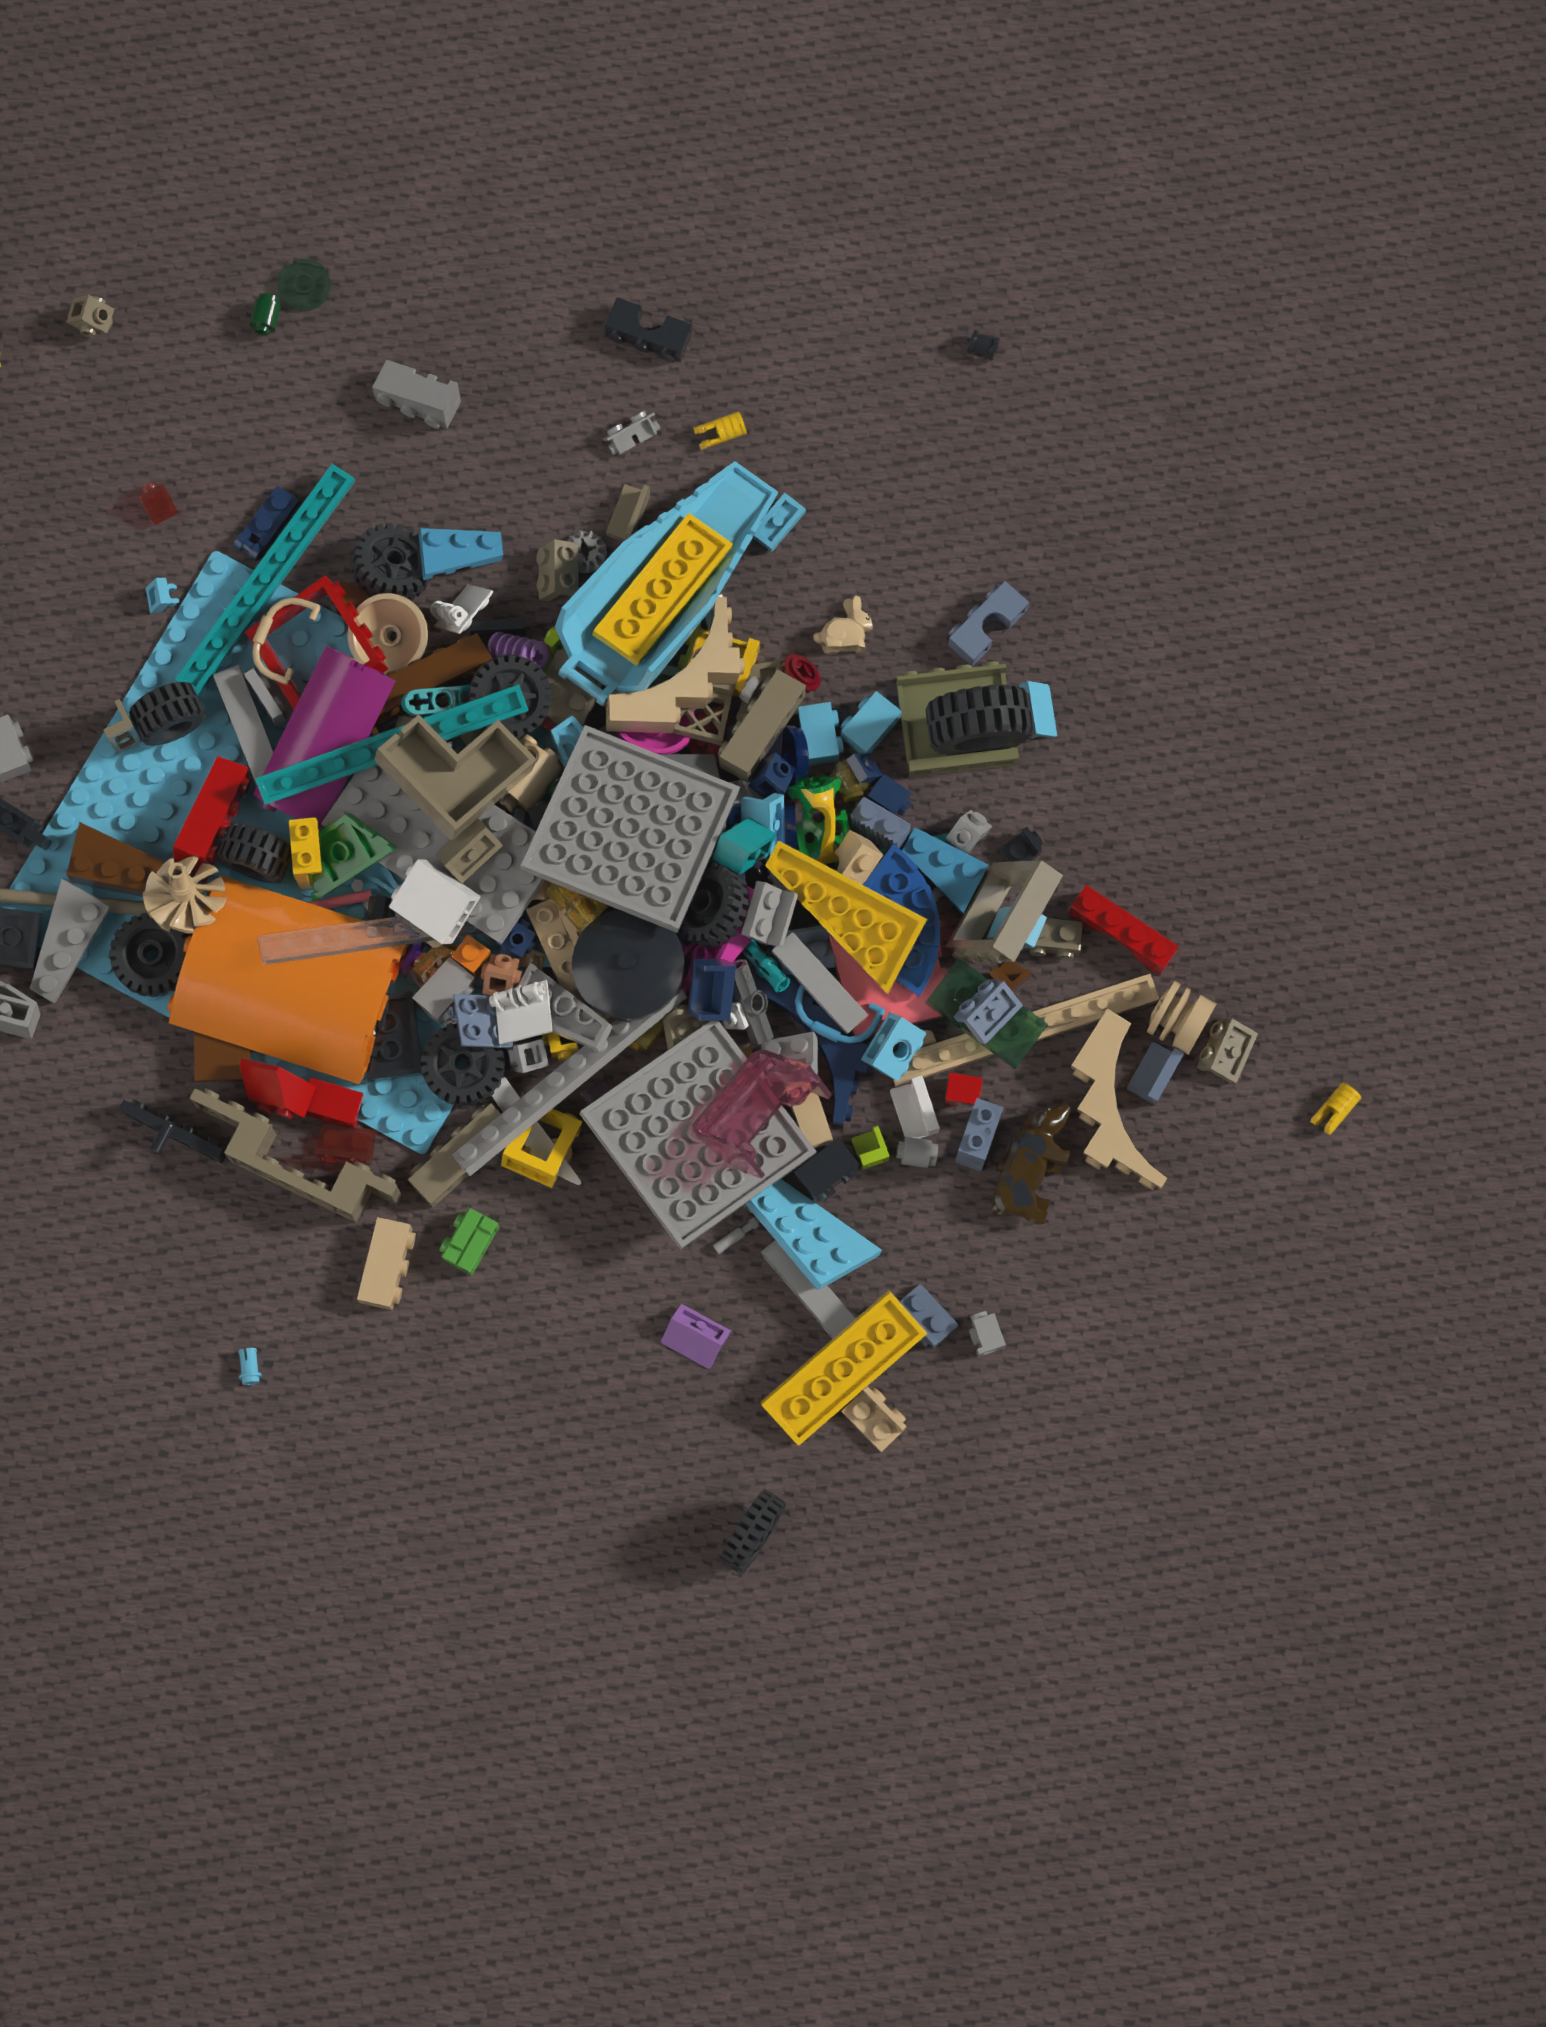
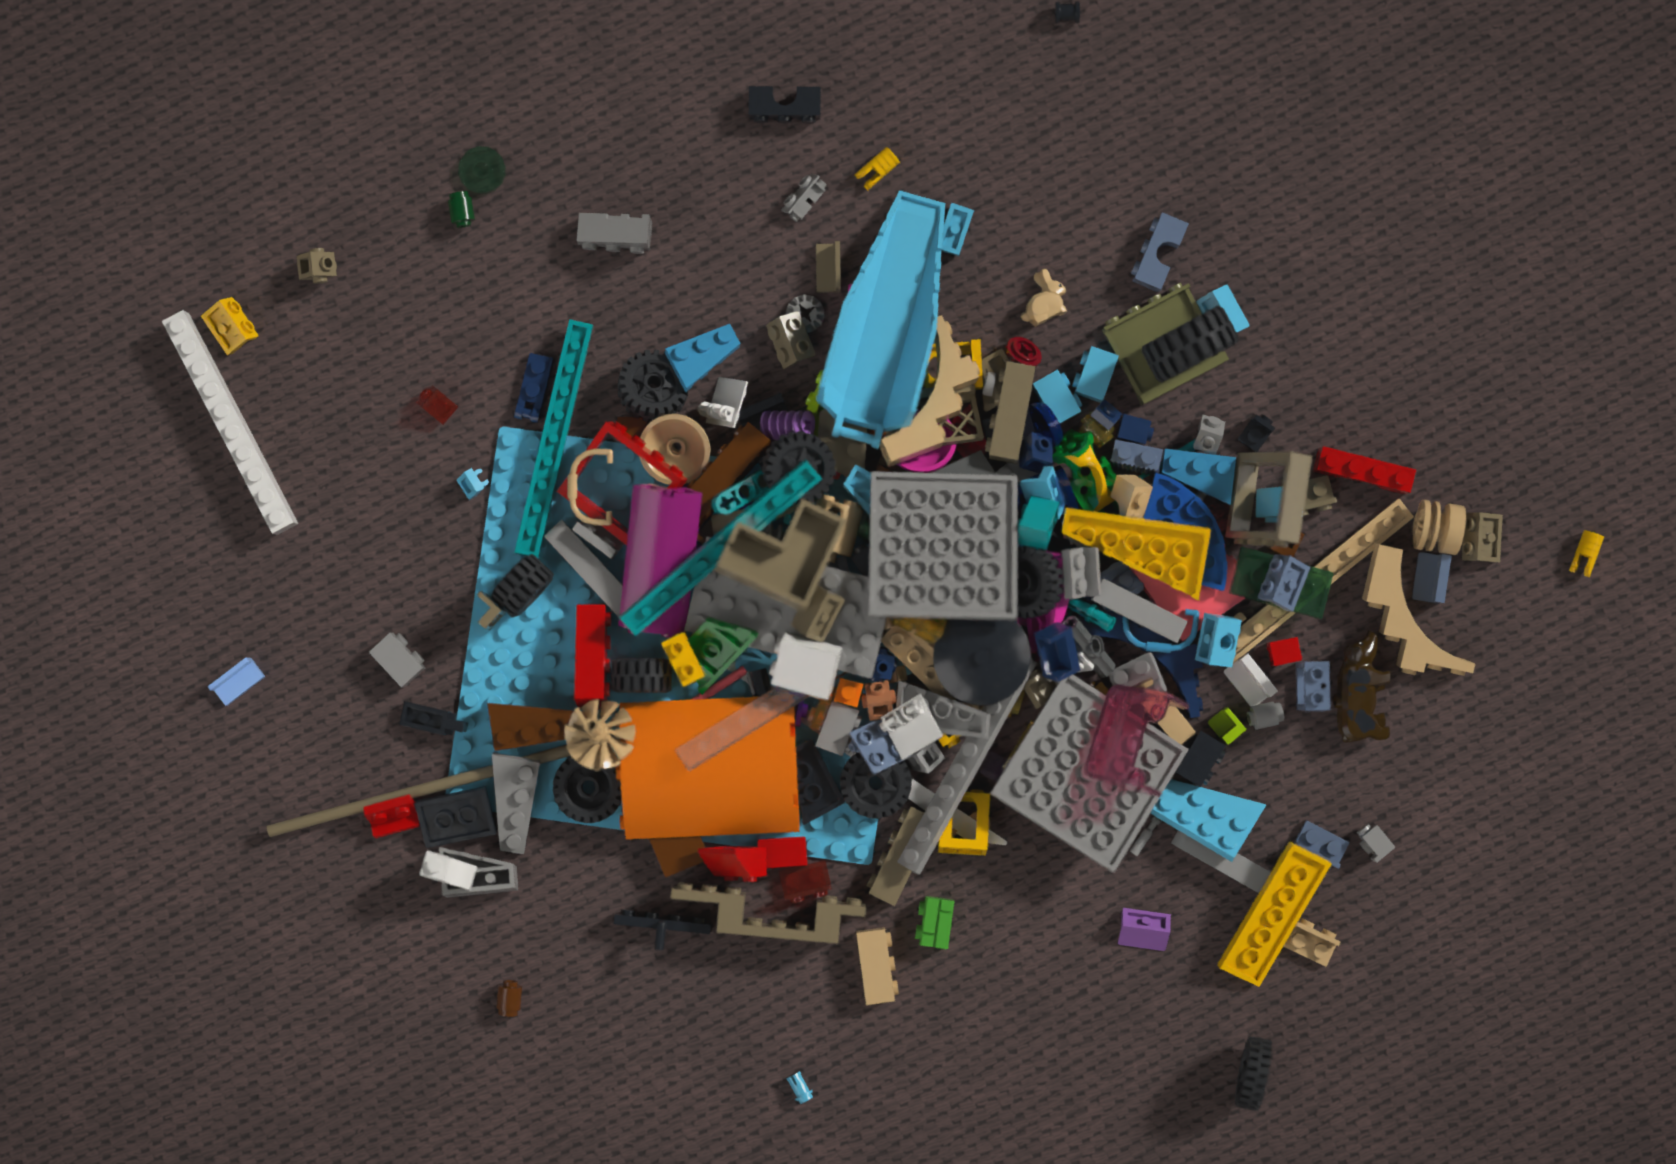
camera: 20 degrees left, 10 degrees up
(662, 589) = (887, 328): yellow plate -> none

